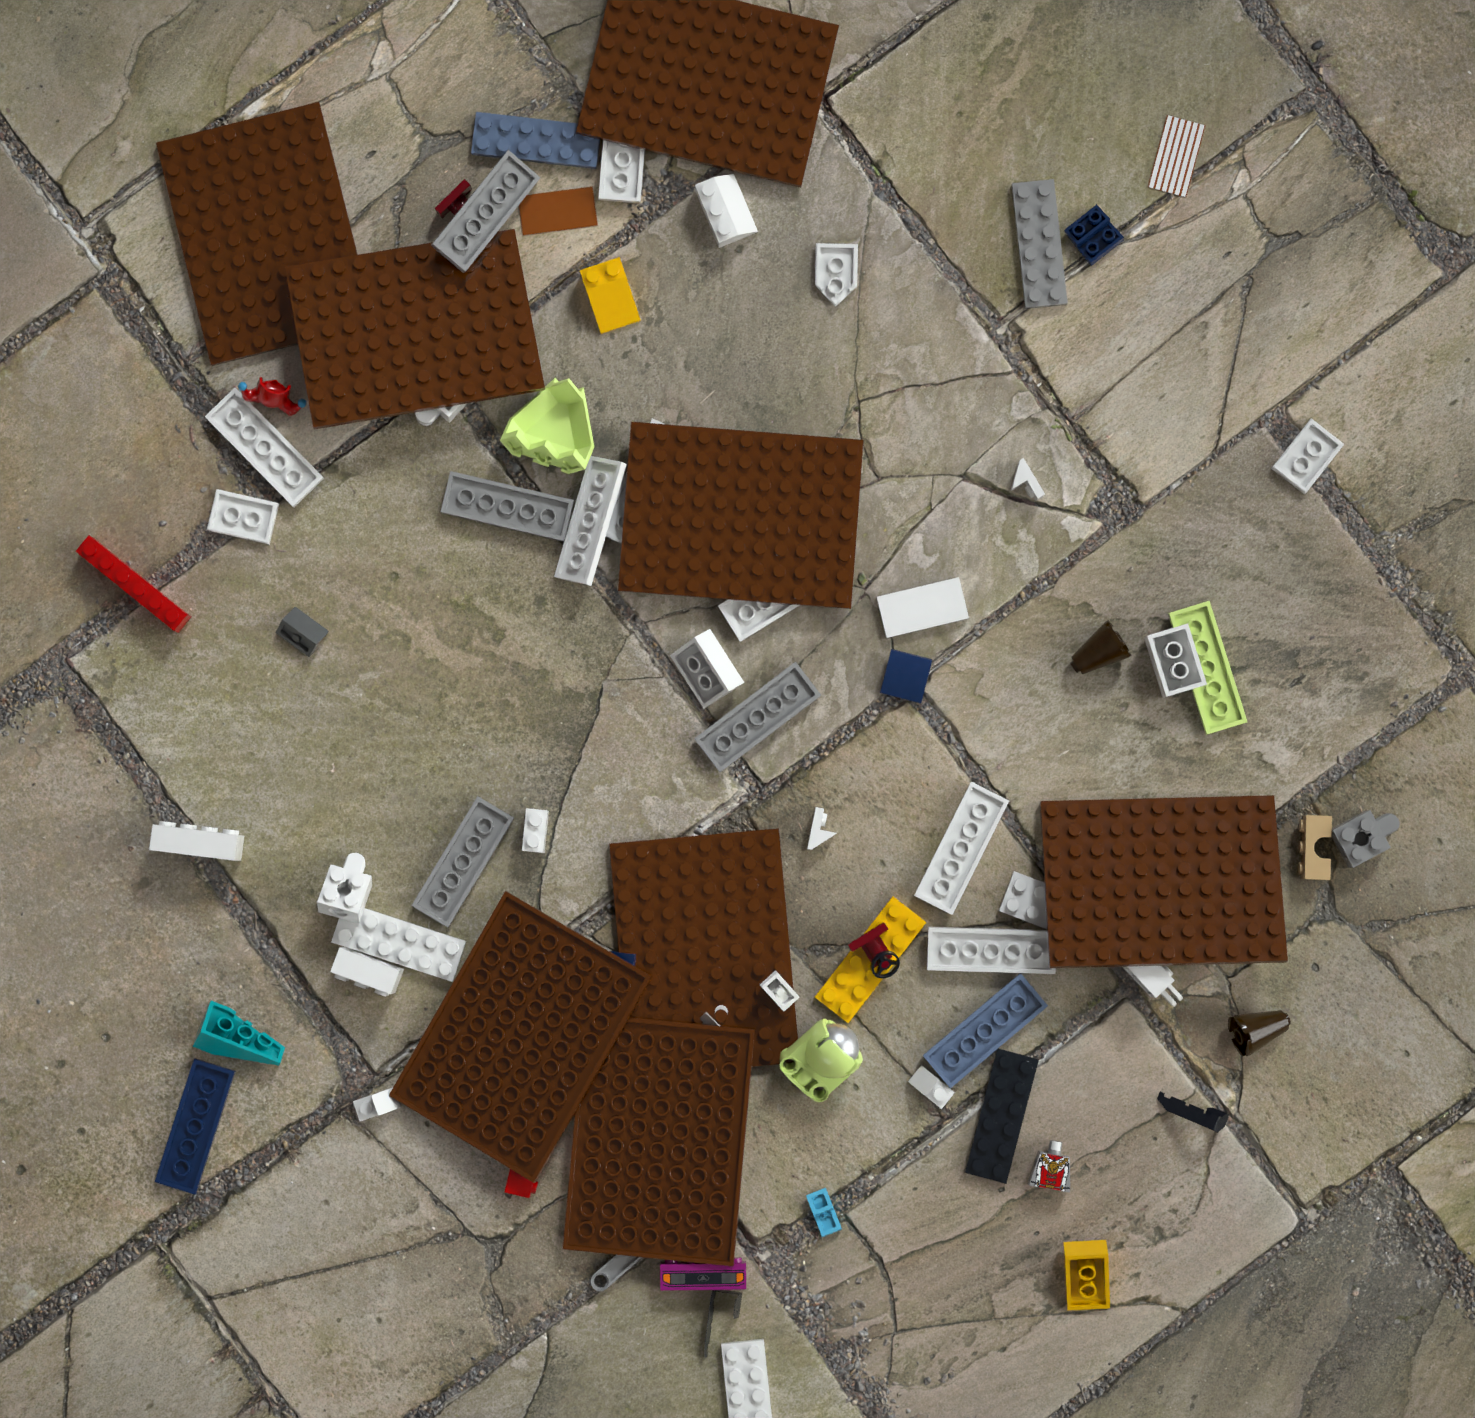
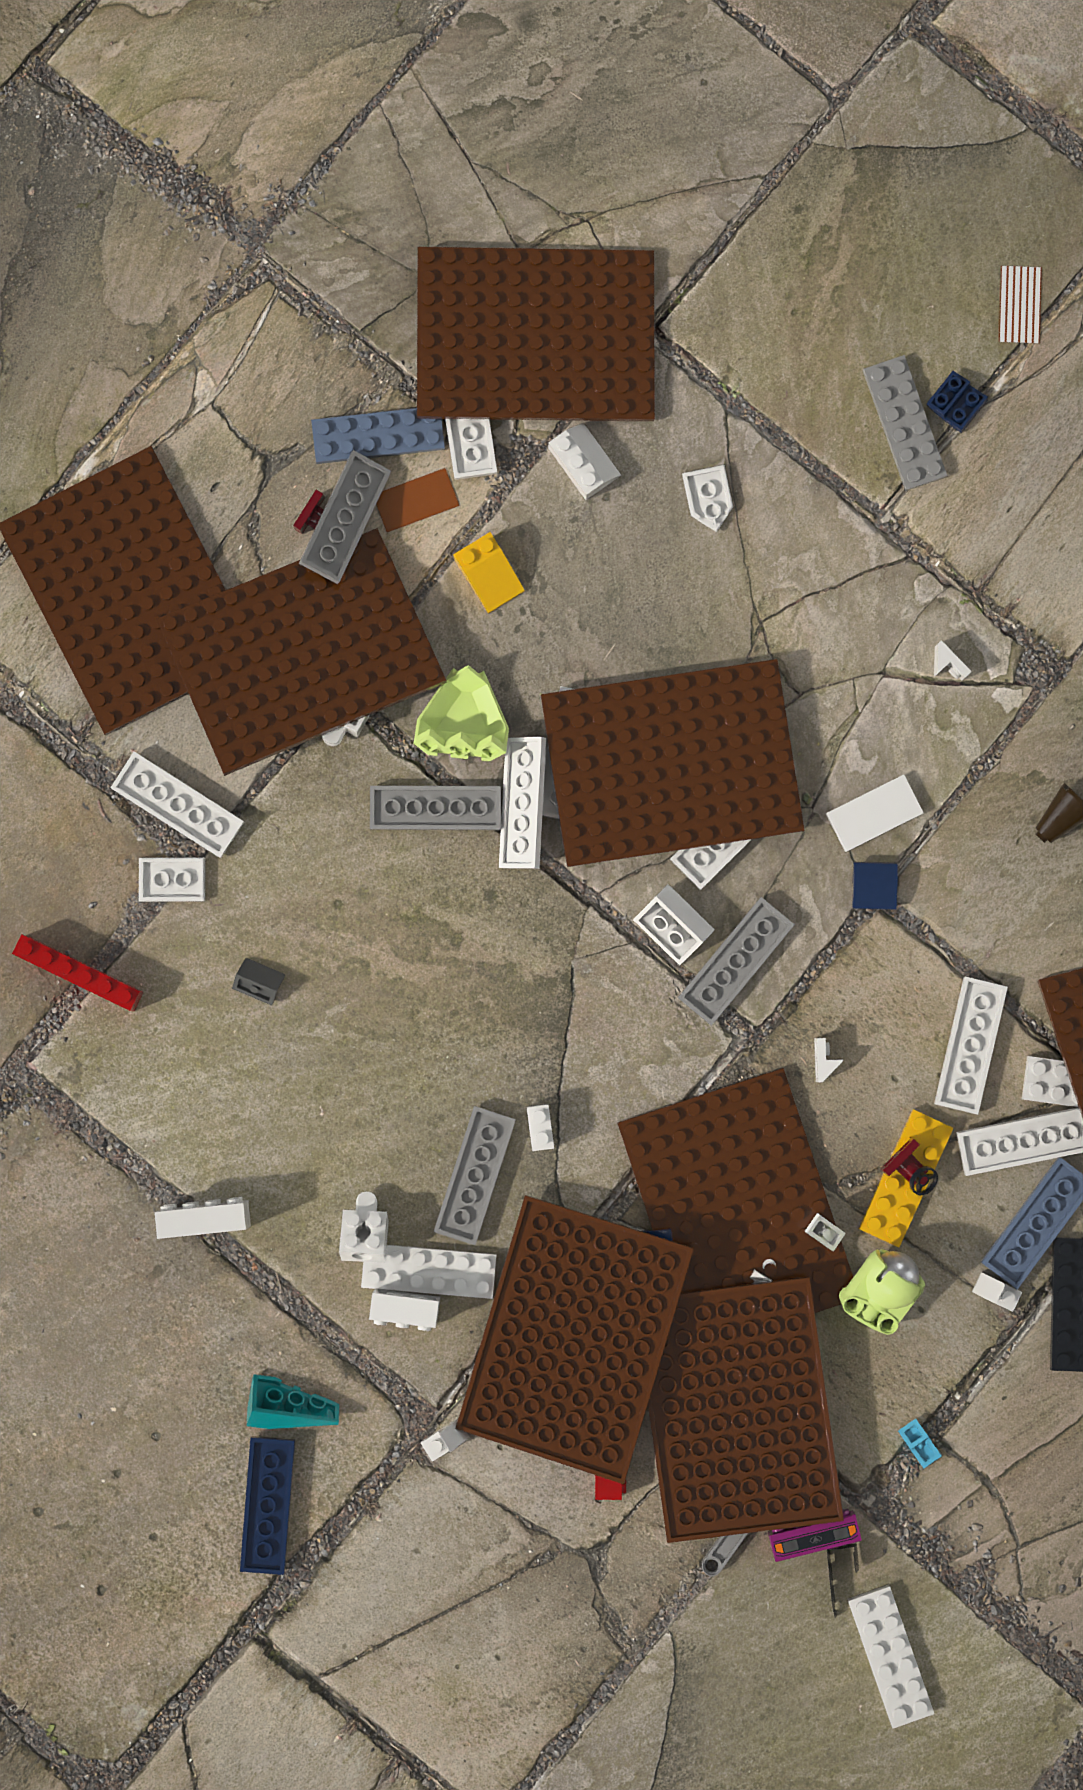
camera: 15 degrees left, 0 degrees up
(272, 395) = (173, 751): red piece -> none

